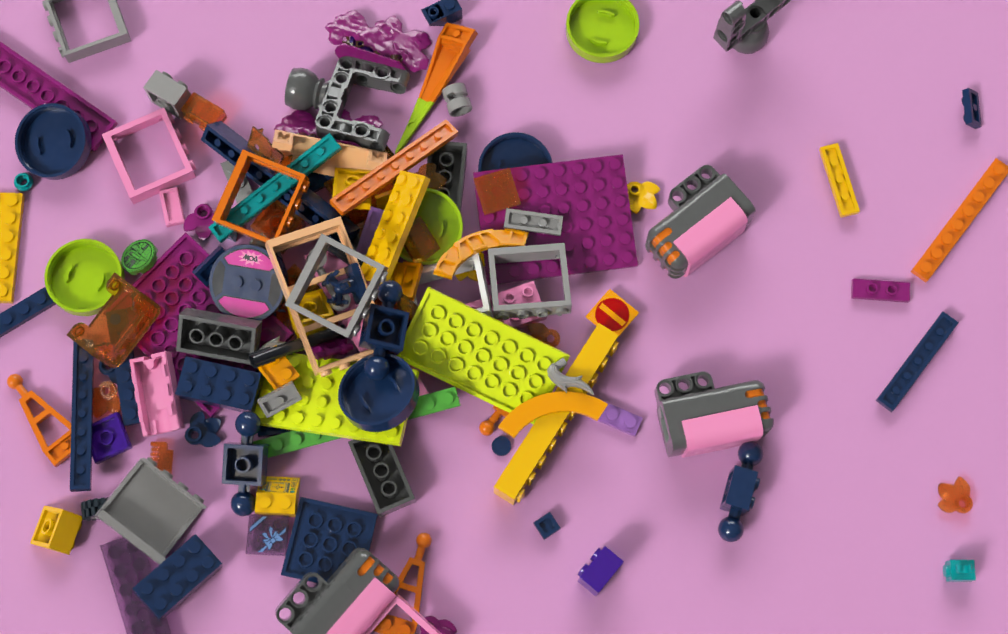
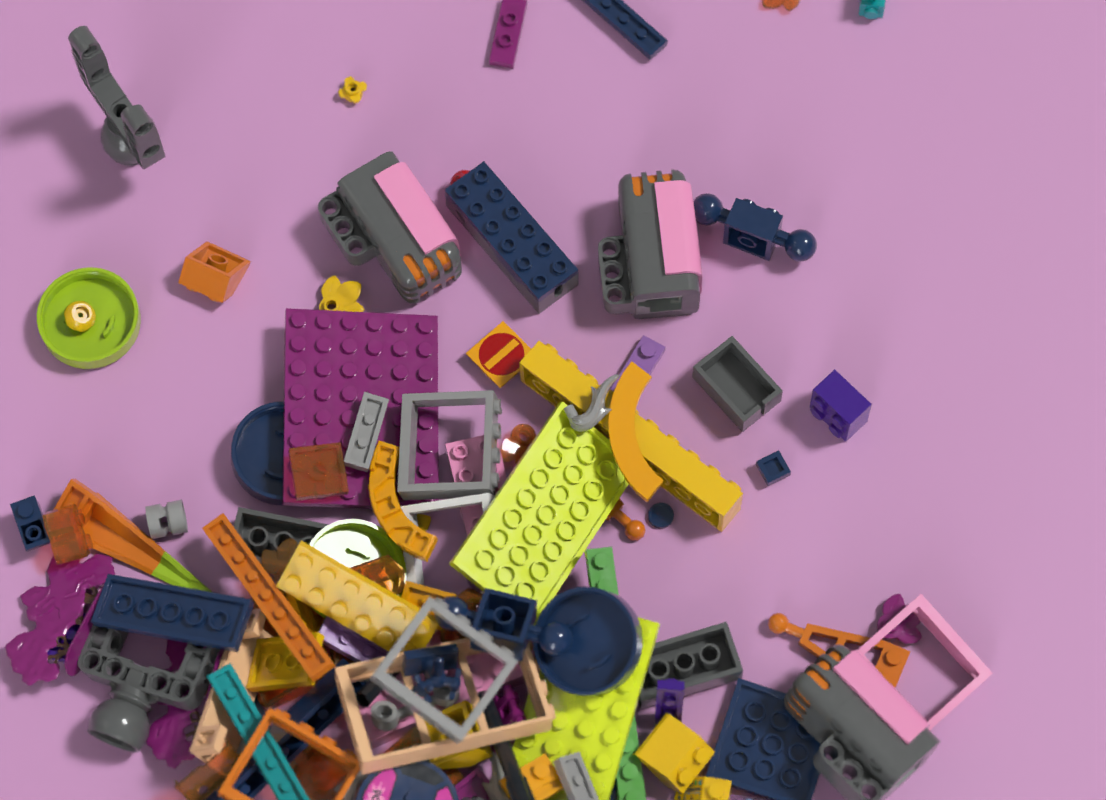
camera: 80 degrees left, 5 degrees down
(312, 471) = (674, 753): none -> yellow slope
(346, 461) = (669, 699): none -> dark purple plate
(379, 108) = (173, 612): none -> dark blue plate
(436, 34) = (67, 534): none -> clear orange brick
(602, 25) = (79, 323): none -> yellow plate
(609, 490) = (737, 383): none -> dark grey piece
(650, 105) = (213, 271): none -> orange slope
(707, 309) = (510, 236): none -> dark blue piece
(812, 187) = (352, 96): none -> yellow plate
(839, 180) = (354, 57): yellow plate -> none

